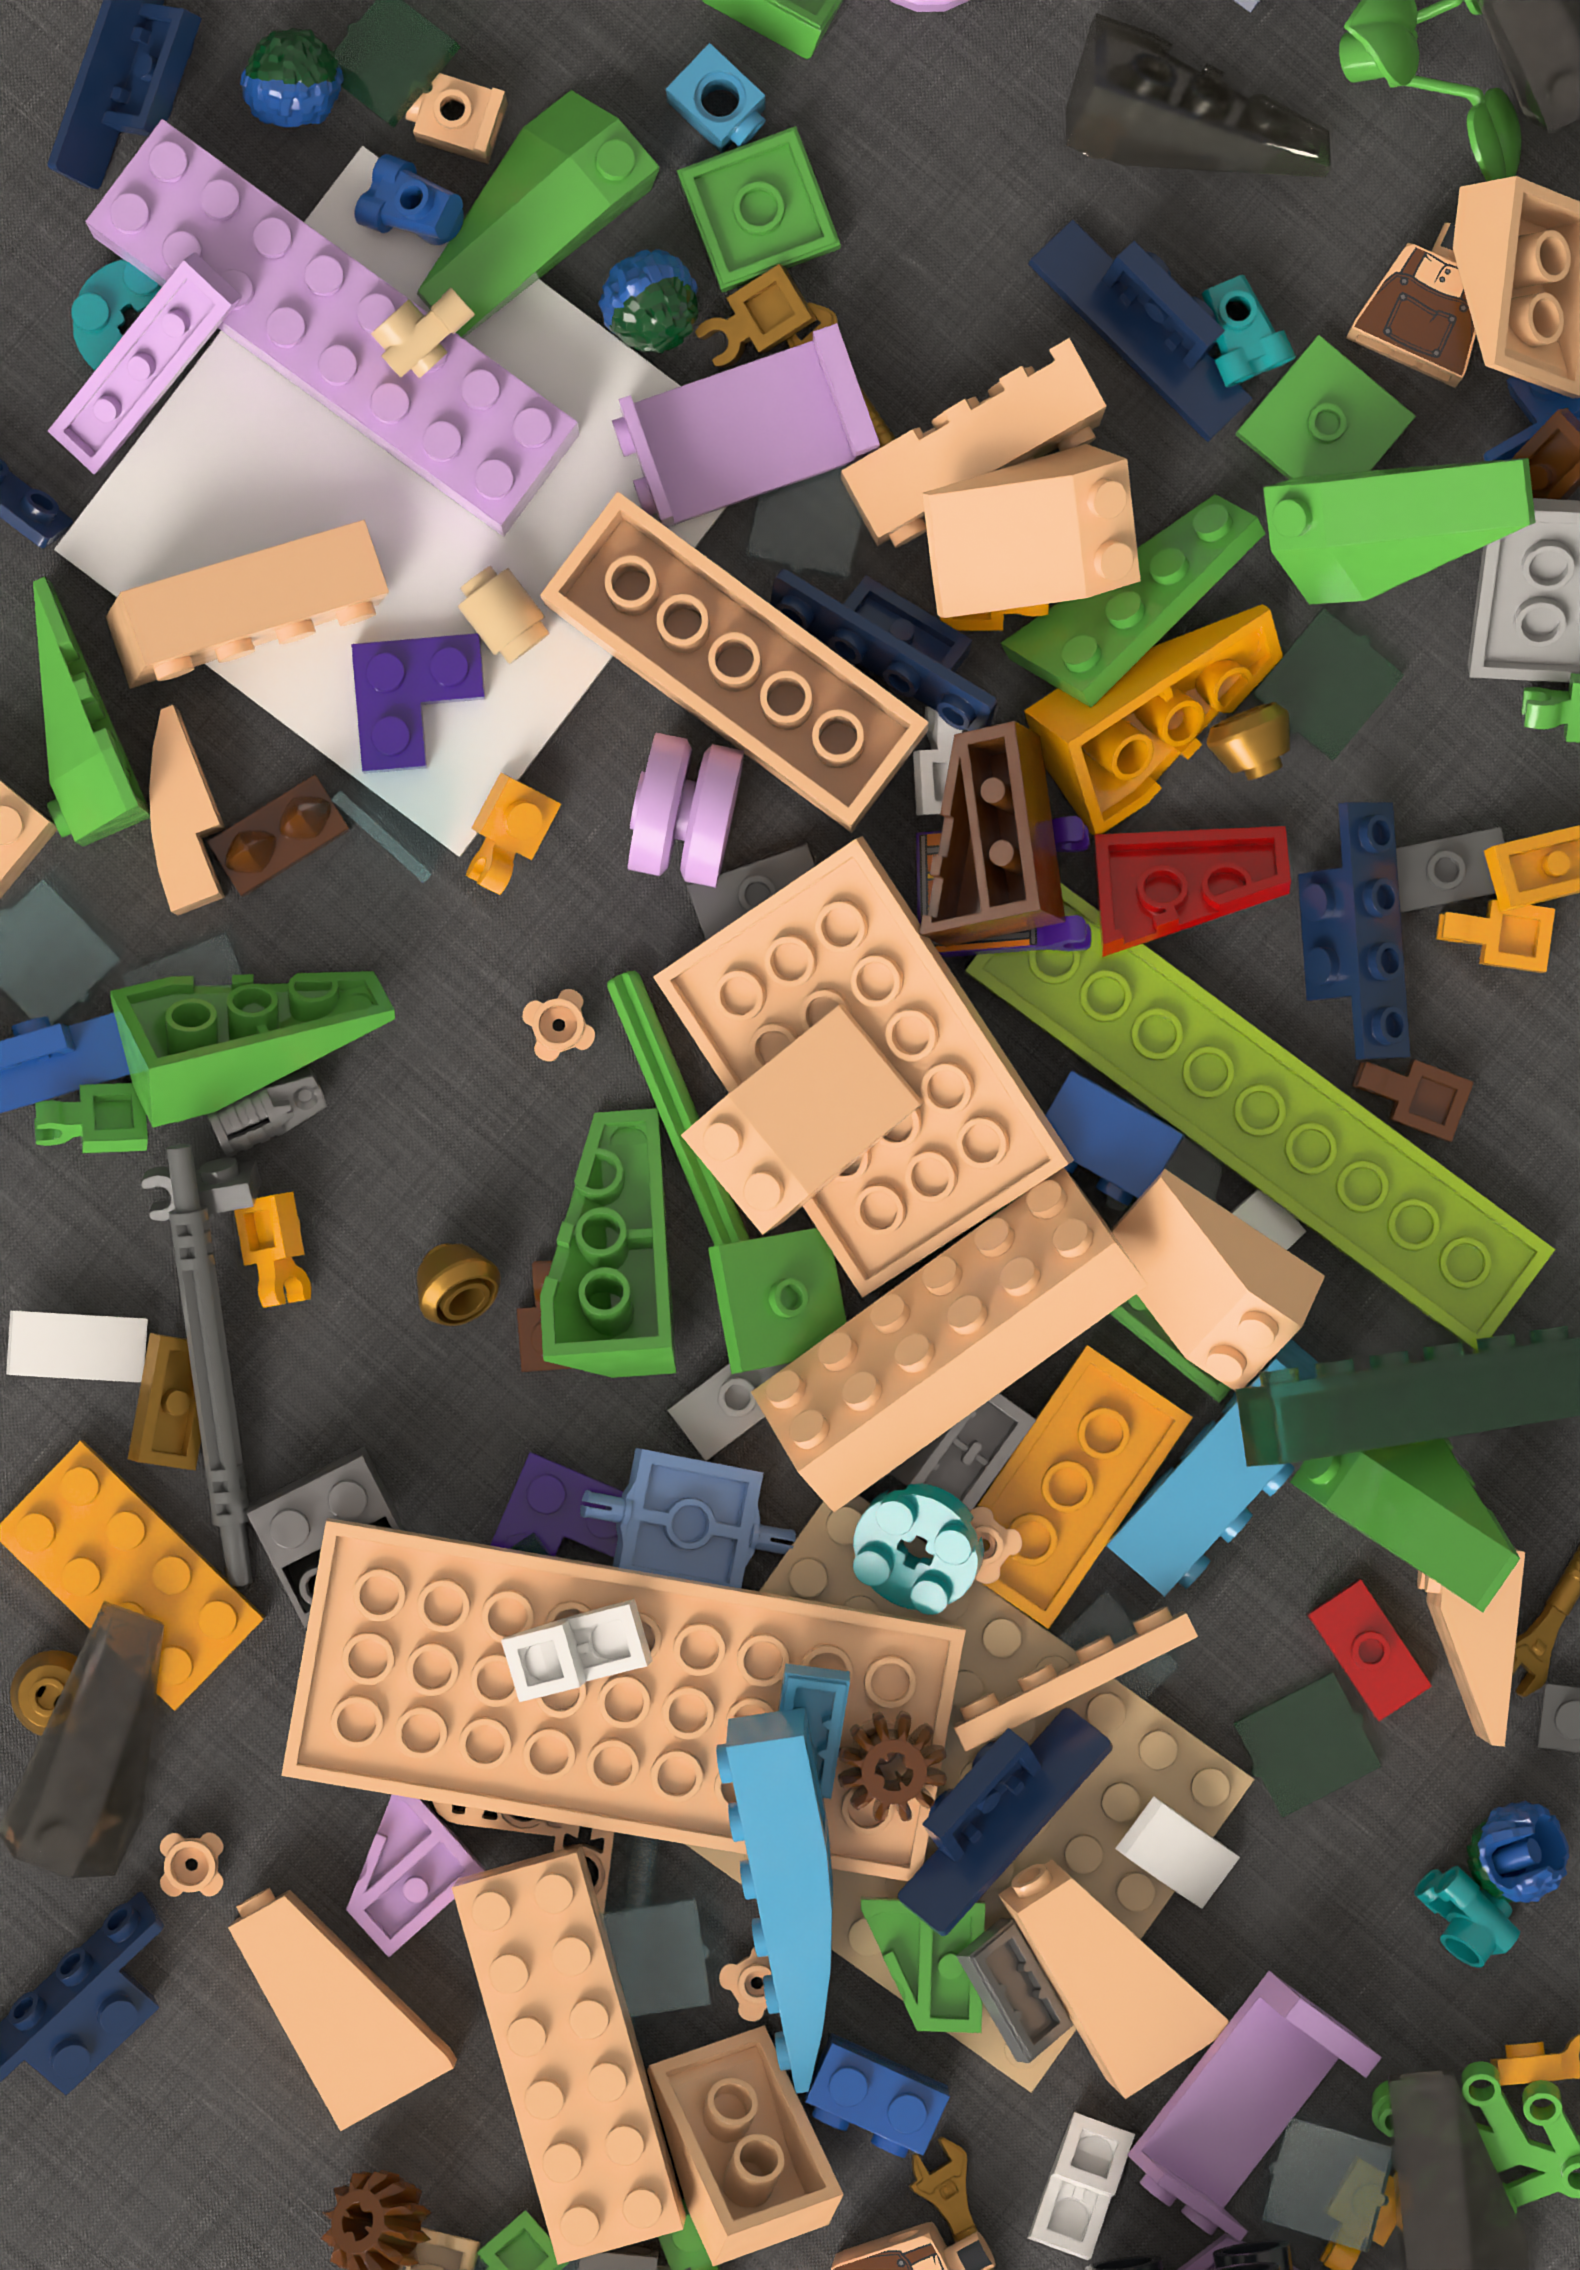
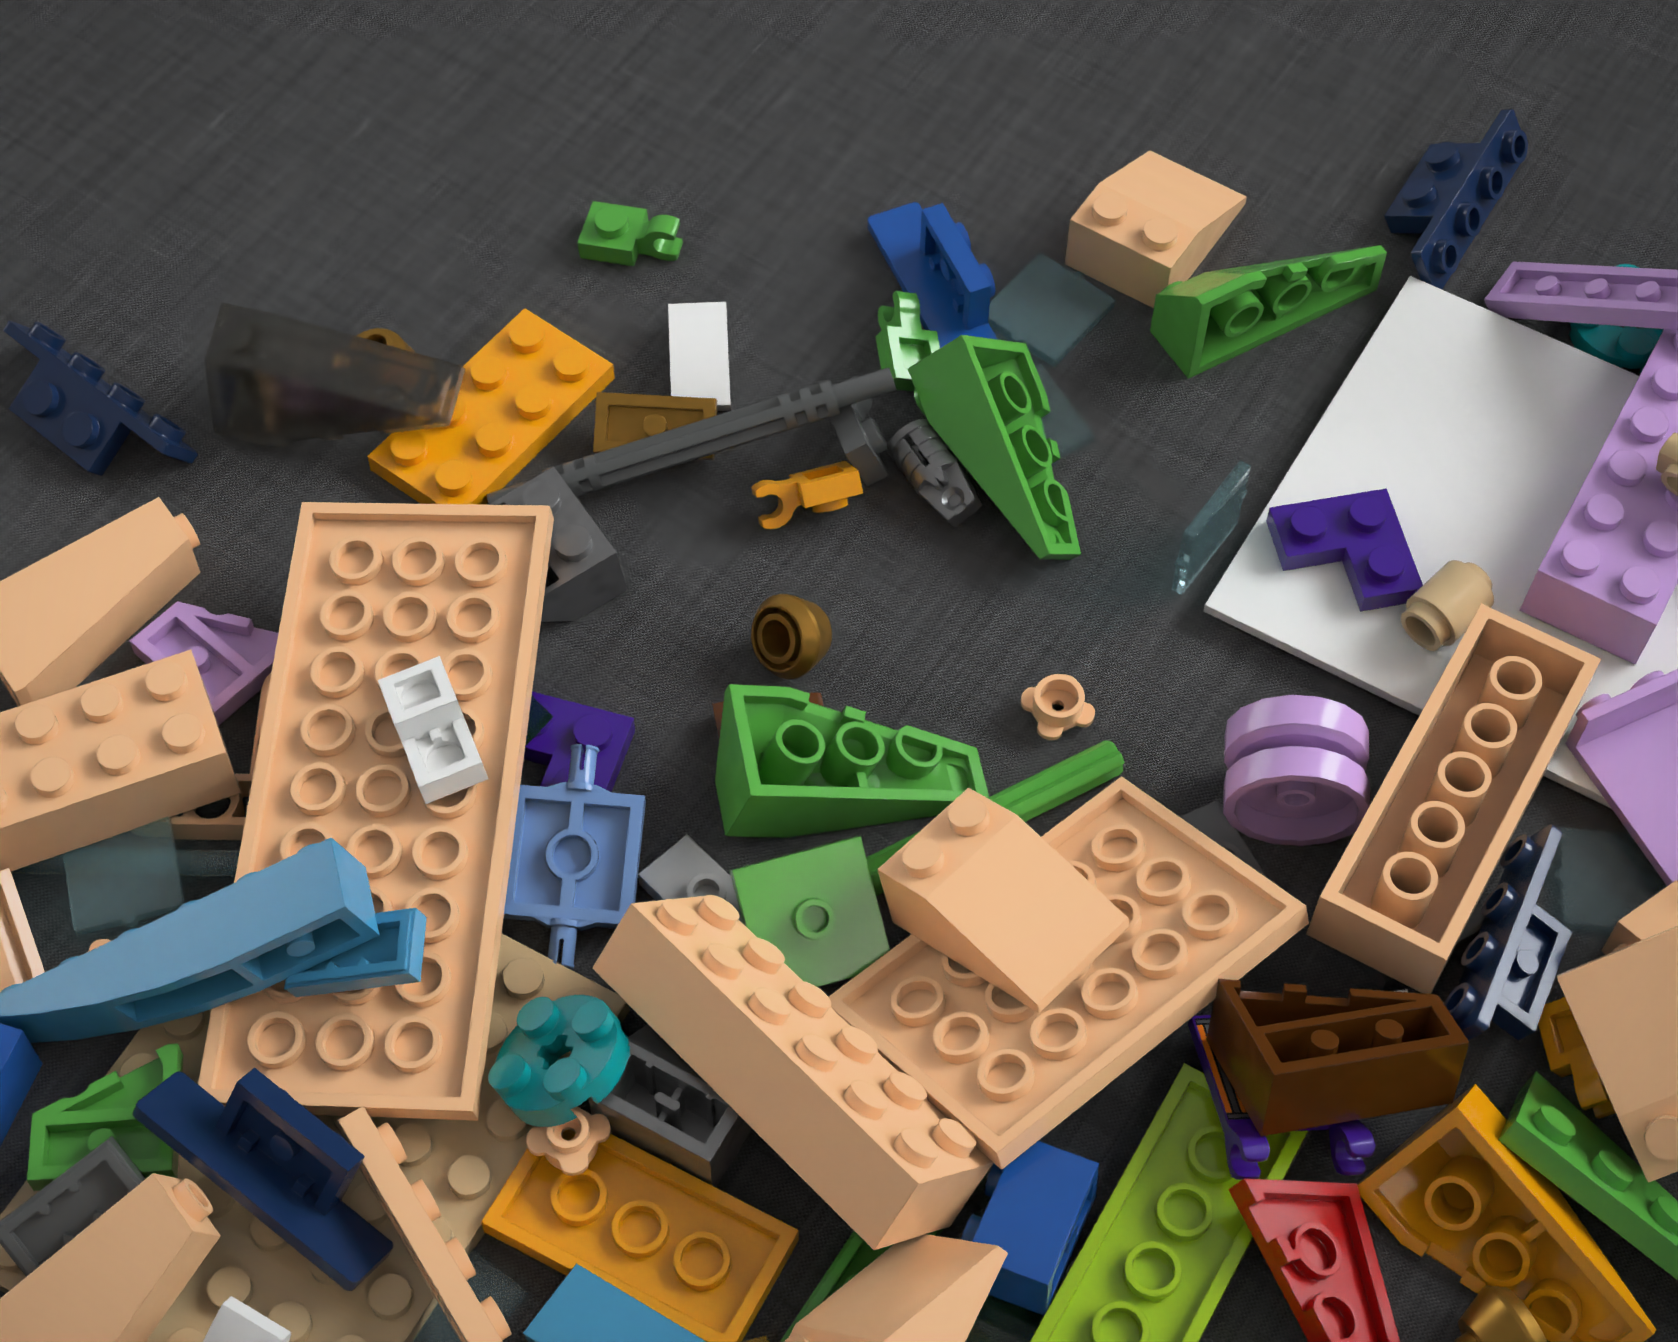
camera: 85 degrees right, 30 degrees down
(179, 1877) = (220, 472): light nougat plate -> none
(181, 816) = (1195, 384): light nougat slope -> none
(246, 603) = (1404, 390): light nougat wedge -> none
(278, 835) = (1185, 459): reddish brown tile -> none
(513, 823) = (1247, 644): light orange plate -> none
(913, 1755) = (332, 1056): reddish brown gear -> none

